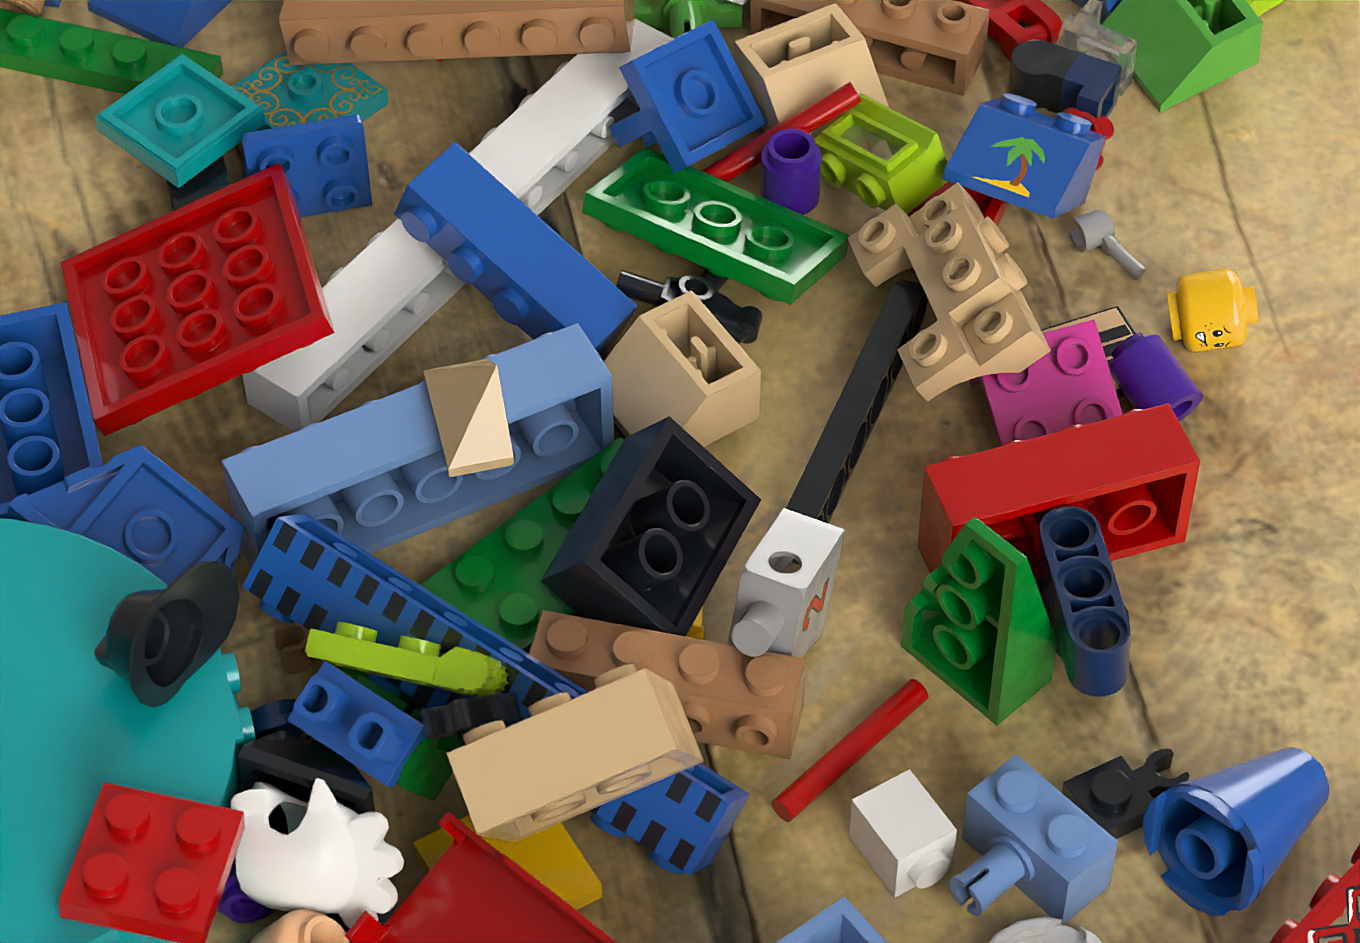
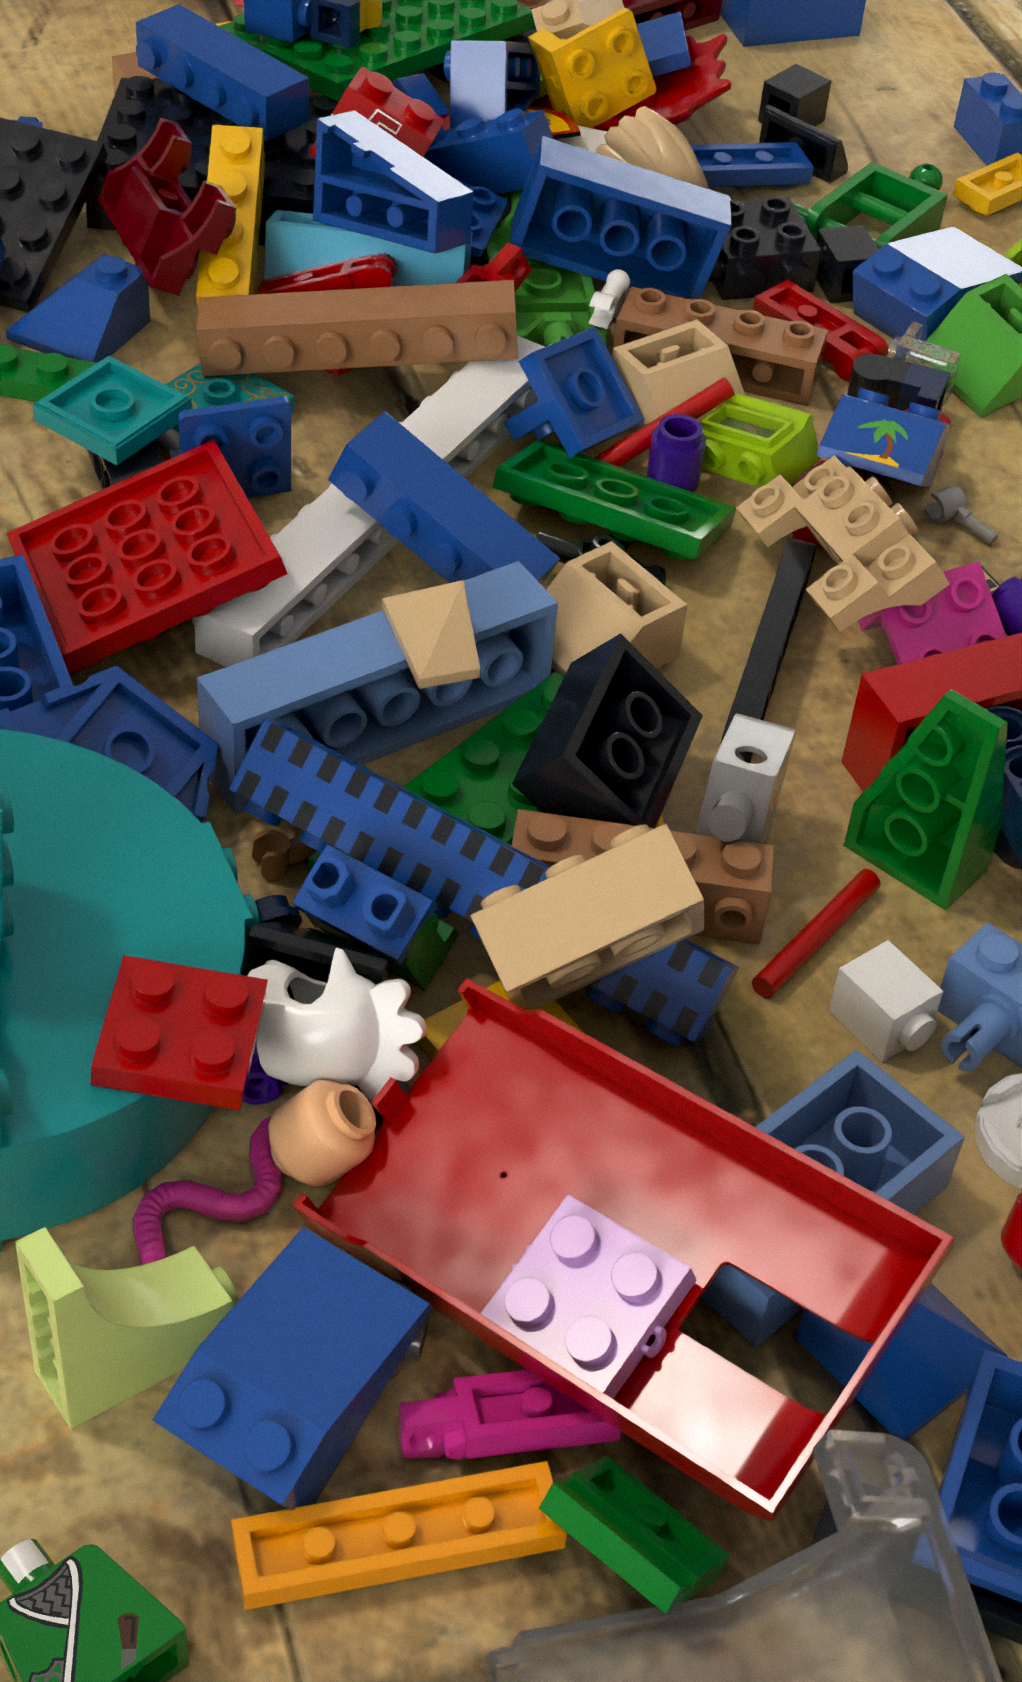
camera: 10 degrees left, 5 degrees down
(170, 632) = (173, 817): black piece -> none
(411, 662) = (410, 846): lime hinge -> none
(466, 715) = (463, 895): black plate -> none

